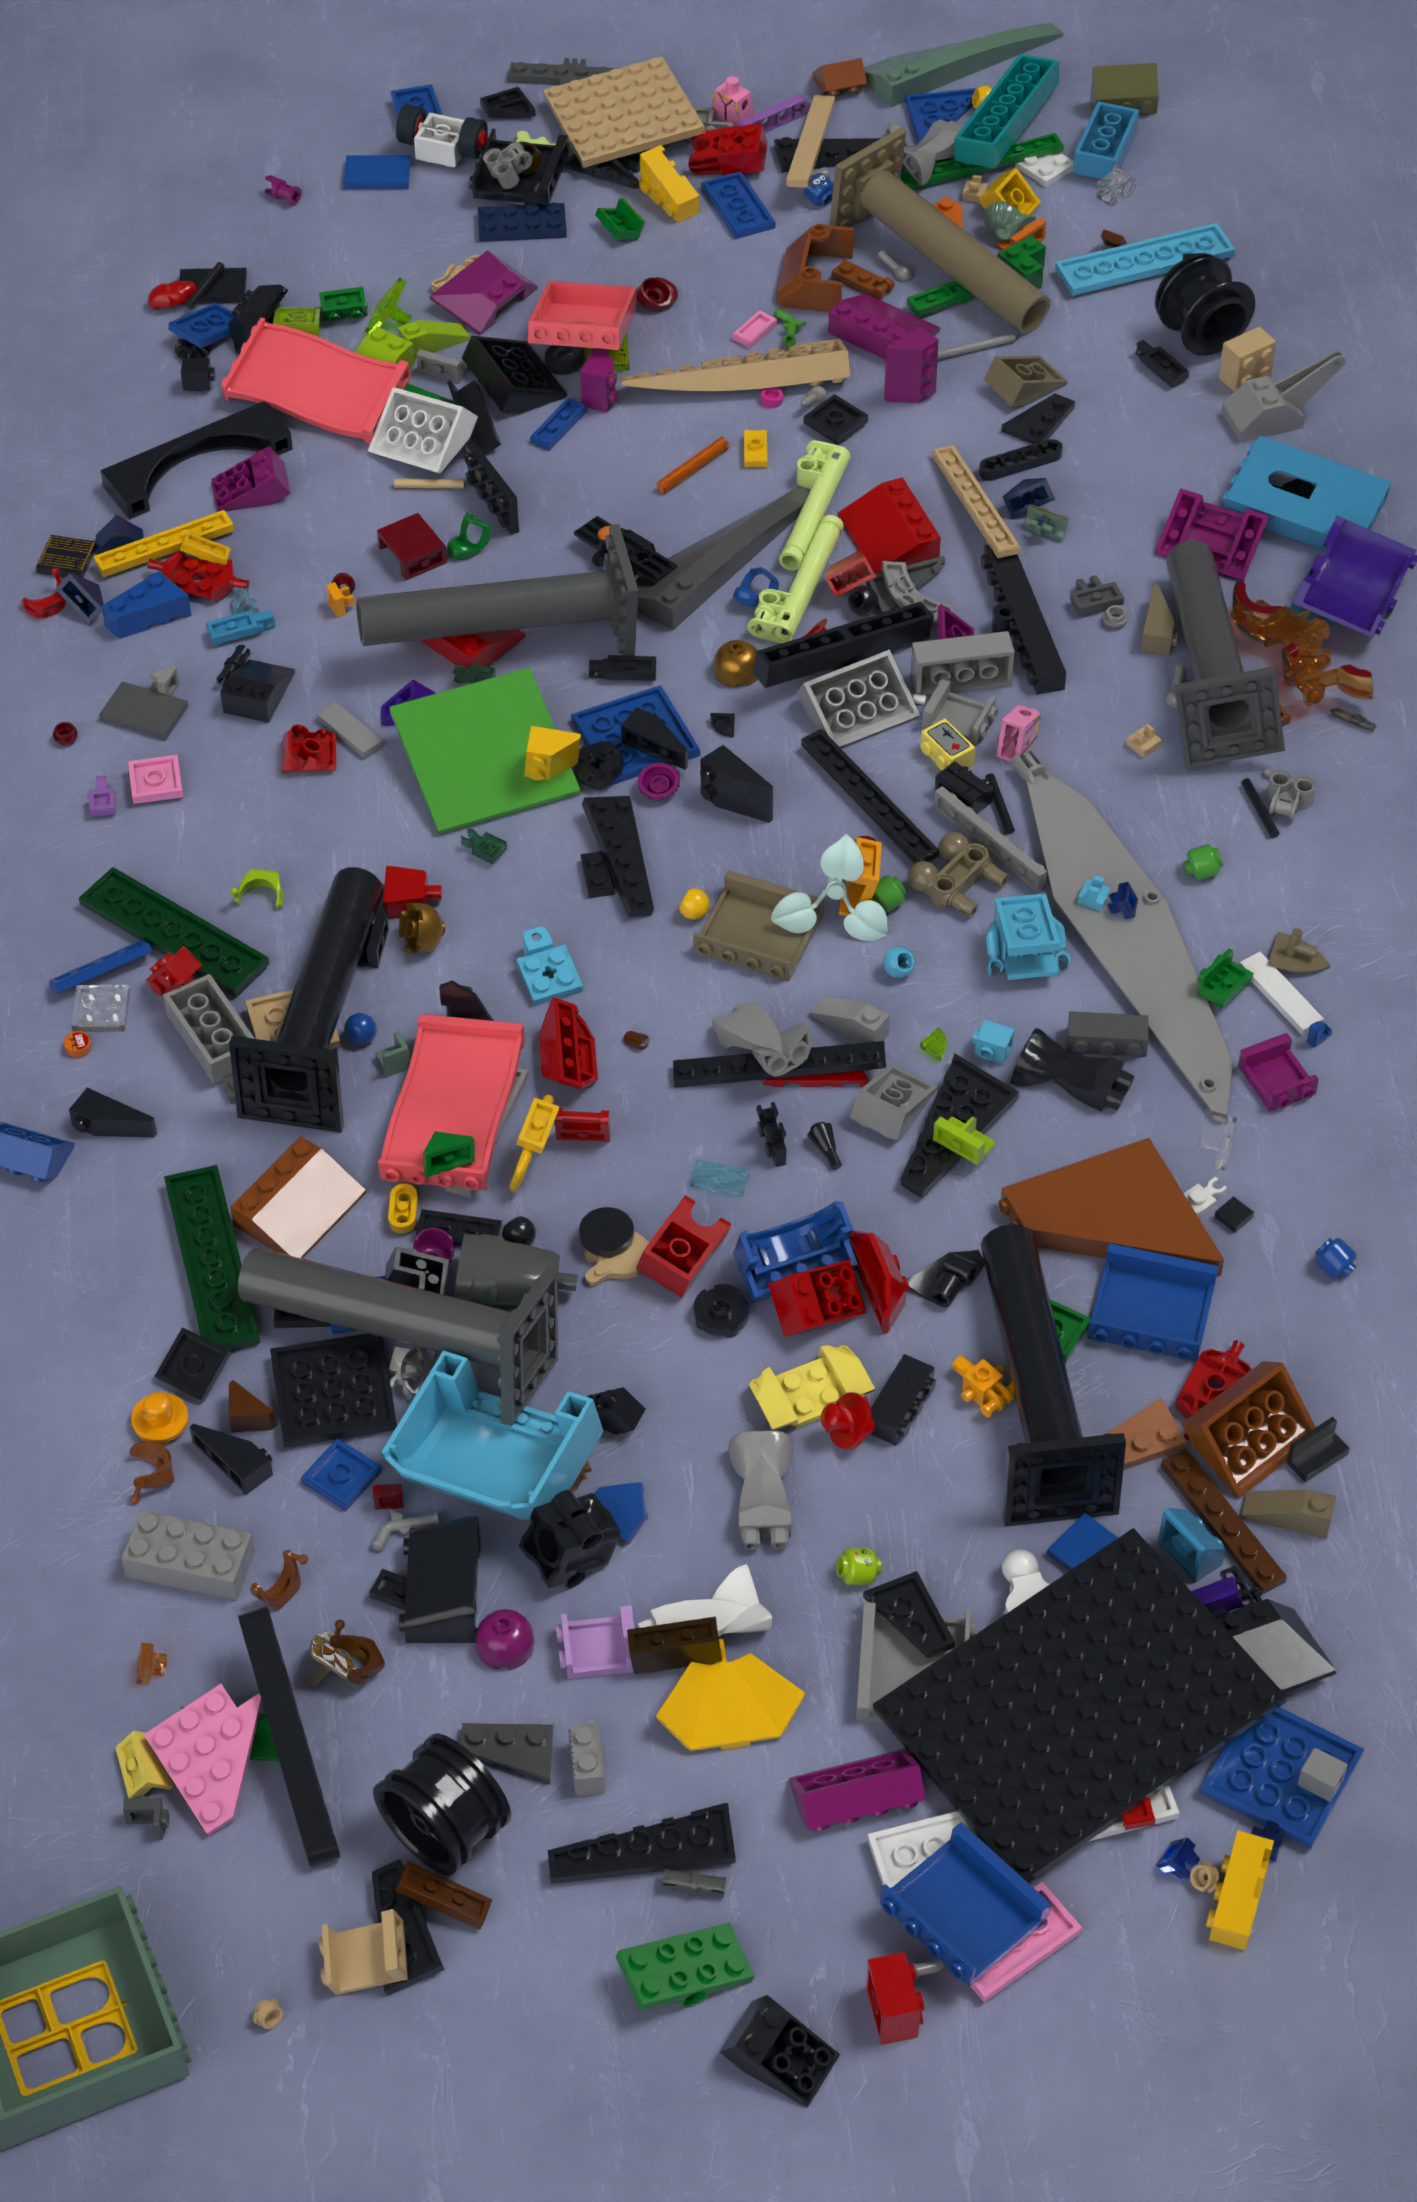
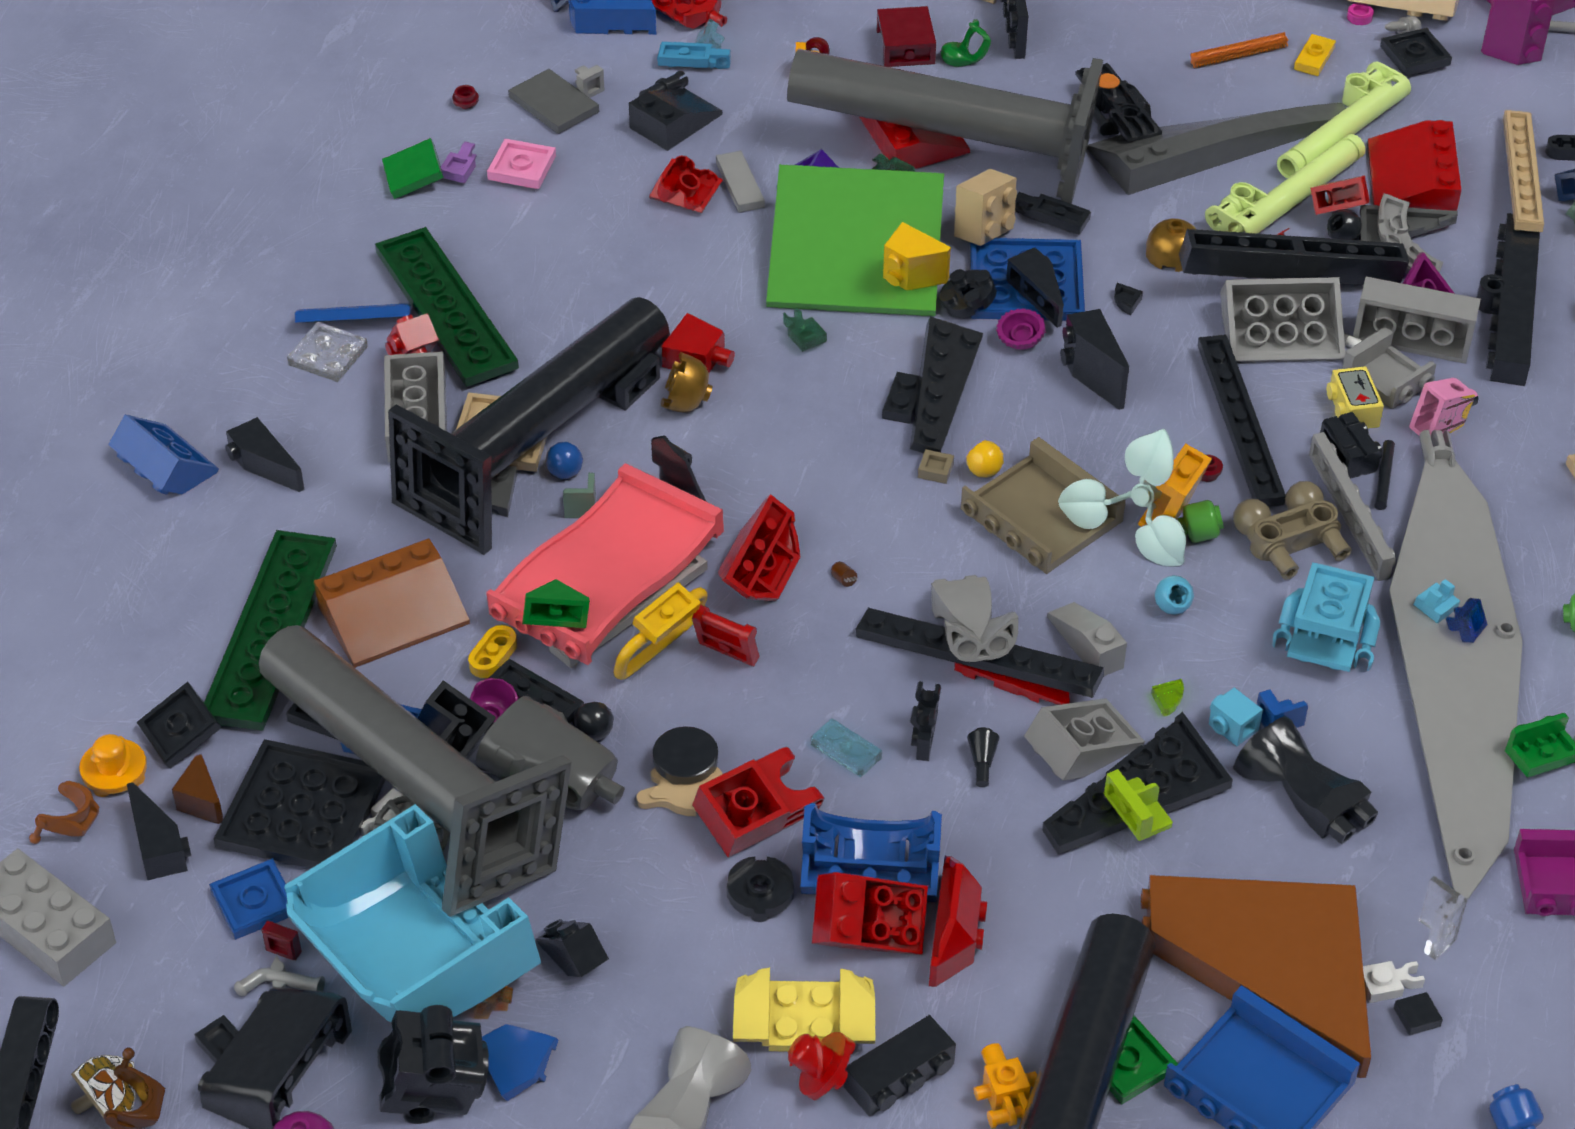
camera: 25 degrees right, 5 degrees down
(64, 817) = (412, 168): none -> green tile
(77, 1044) = (284, 377): orange tile -> none
(258, 878) = (555, 284): lime helmet -> none
(287, 1583) = (116, 994): dark orange helmet -> none
(542, 957) = (797, 458): medium azure plate -> none
(575, 684) = (985, 207): none -> tan brick
(656, 923) = (936, 466): none -> dark tan tile
(748, 597) = (1220, 183): blue piece -> none
(947, 1276) = (1034, 950): black panel -> none
(1024, 1025) = (1274, 709): none -> blue panel
(1107, 1033) = (1372, 755): dark grey brick -> none

